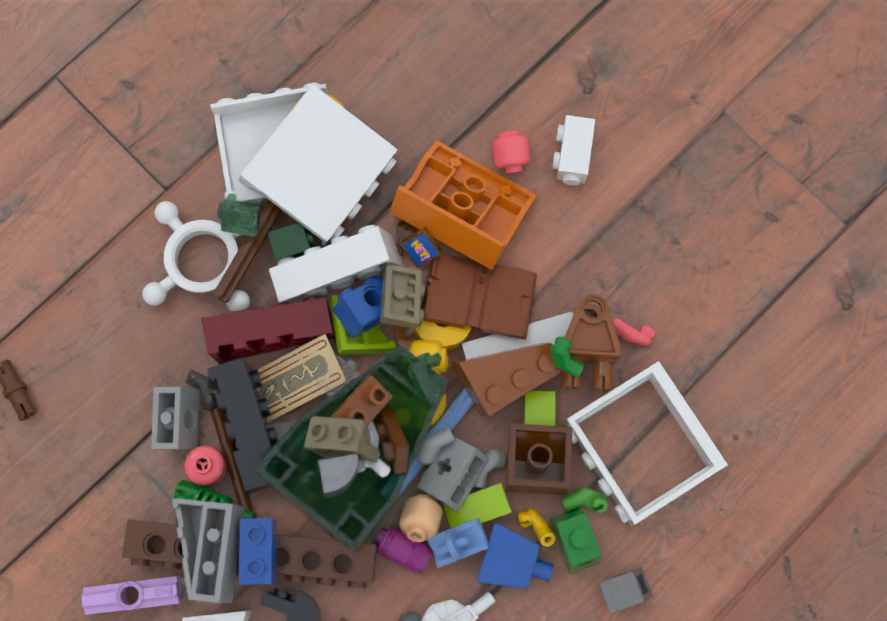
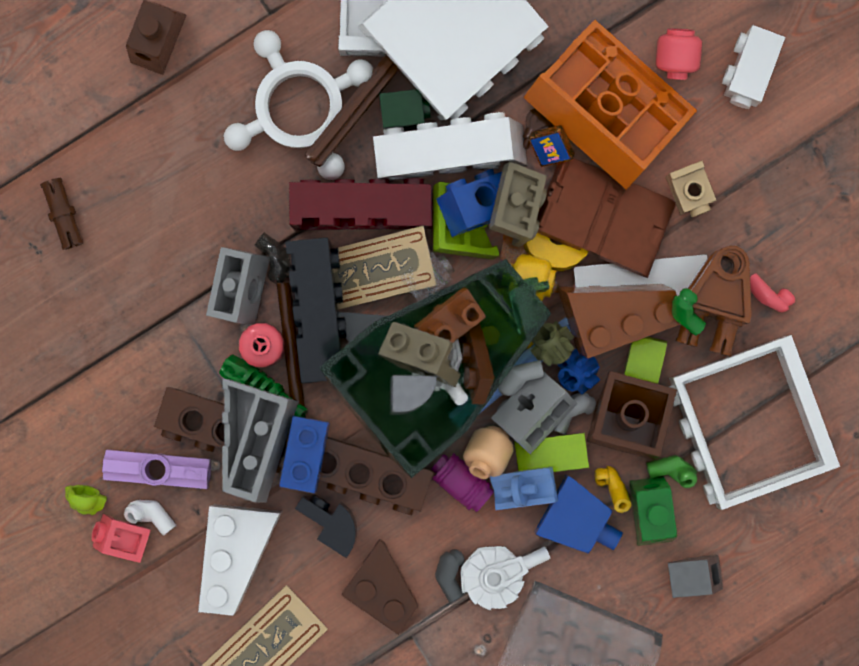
camera: 15 degrees right, 10 degrees up
(69, 221) = (154, 36): none -> reddish brown torso
(239, 216) = (351, 70): clear green bracket -> none
(456, 410) = (553, 344): none -> olive gear
(484, 431) = (578, 373): none -> blue gear
(546, 271) = (679, 183): none -> tan brick

